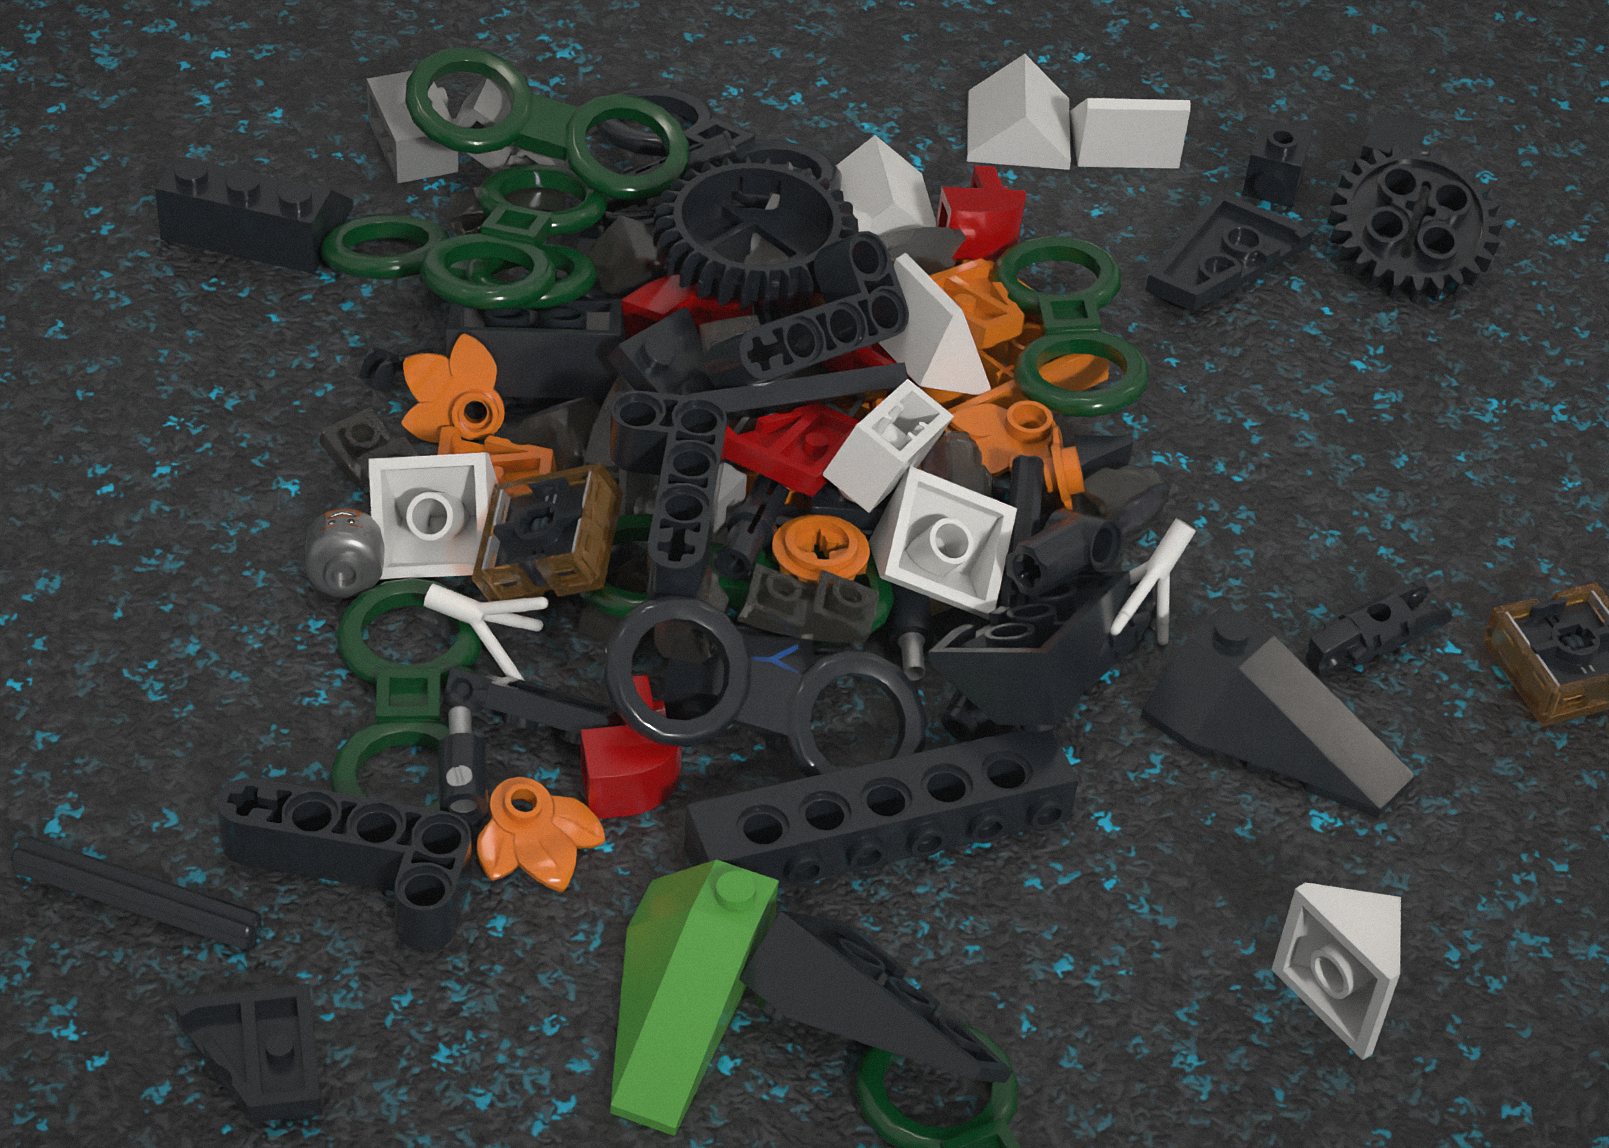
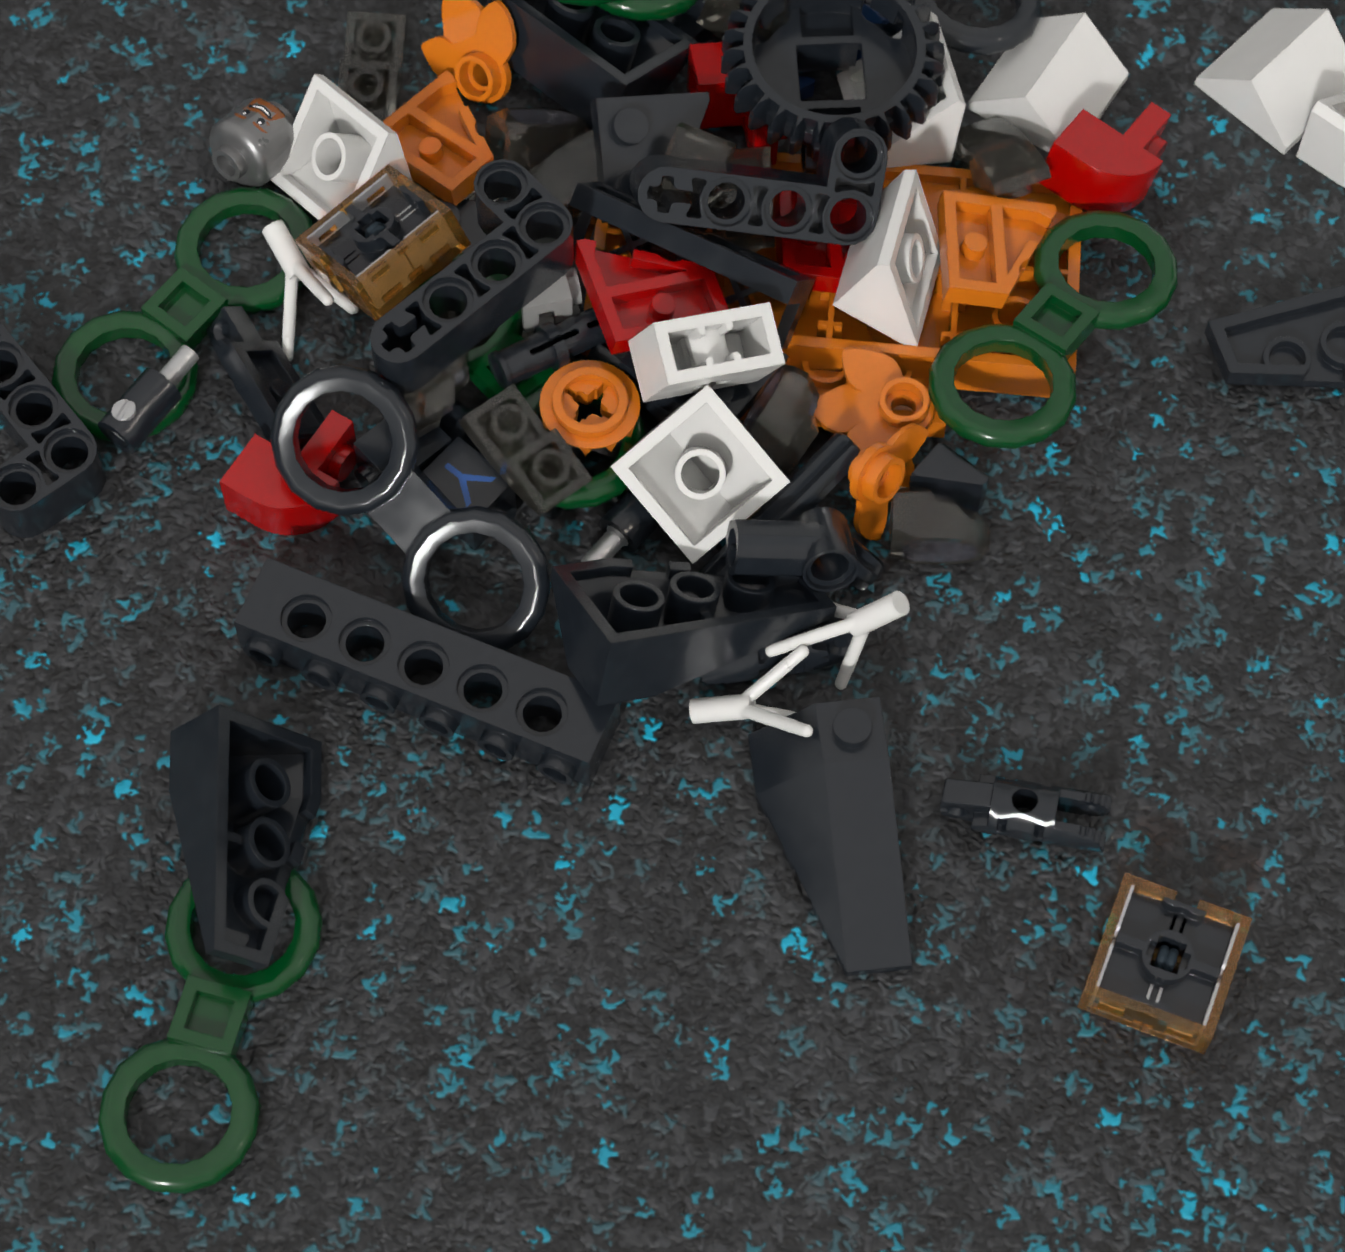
camera: 45 degrees right, 20 degrees up
(538, 840) = (161, 502): orange plate -> none
(683, 984) = (135, 704): bright green wedge -> none
(1125, 686) = (744, 705): none -> white plant
(1342, 958) = (636, 1086): white slope -> none

